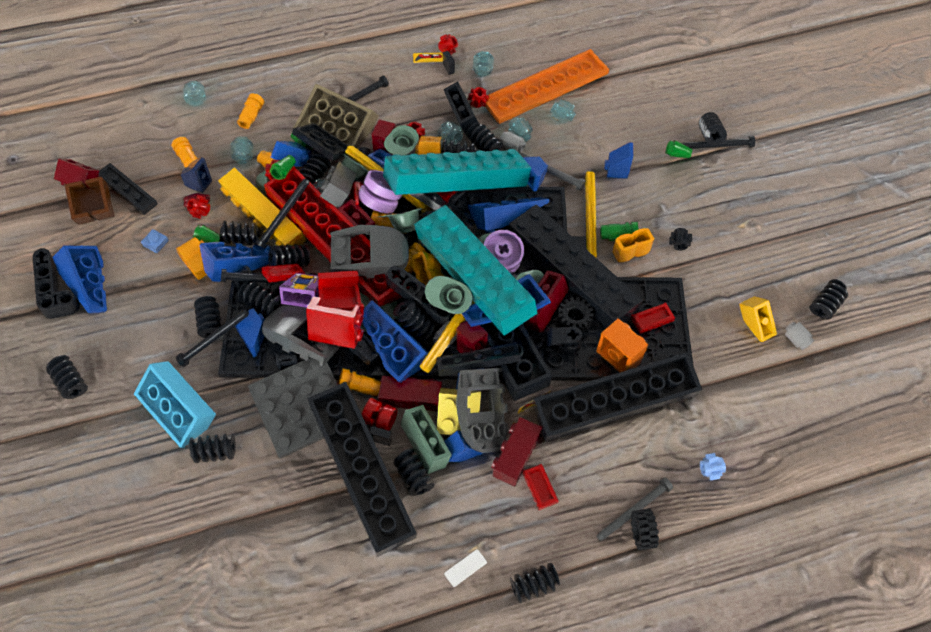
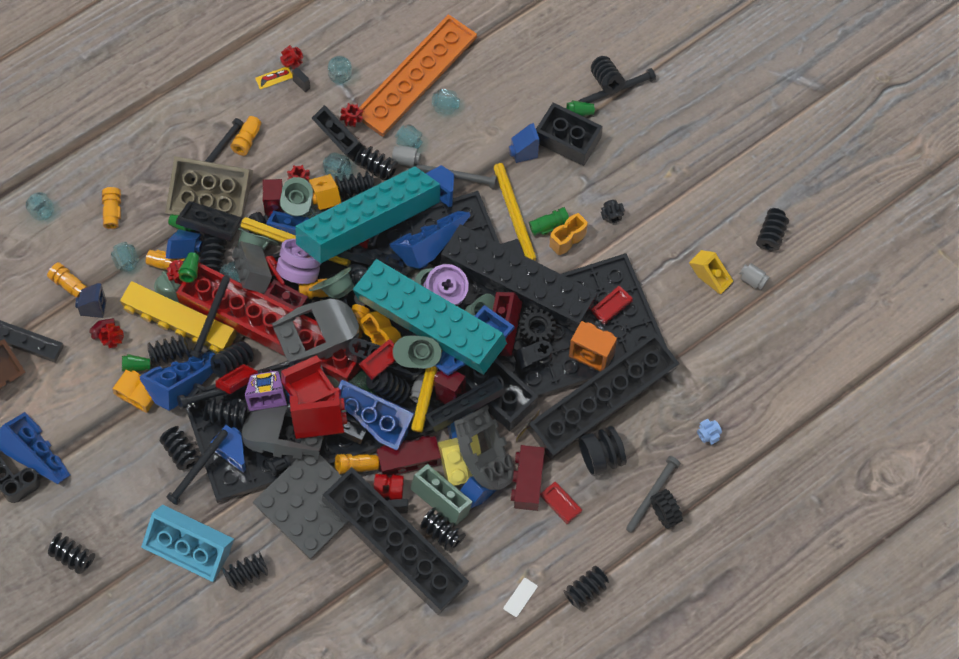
camera: 20 degrees left, 5 degrees up
(154, 241) = (81, 387): medium blue plate -> none
(381, 93) = (248, 132): none -> light orange axle
(410, 292) = (378, 360): none -> red tile
(601, 449) = (605, 449): none -> black wheel
(662, 164) = (568, 133): none -> black brick

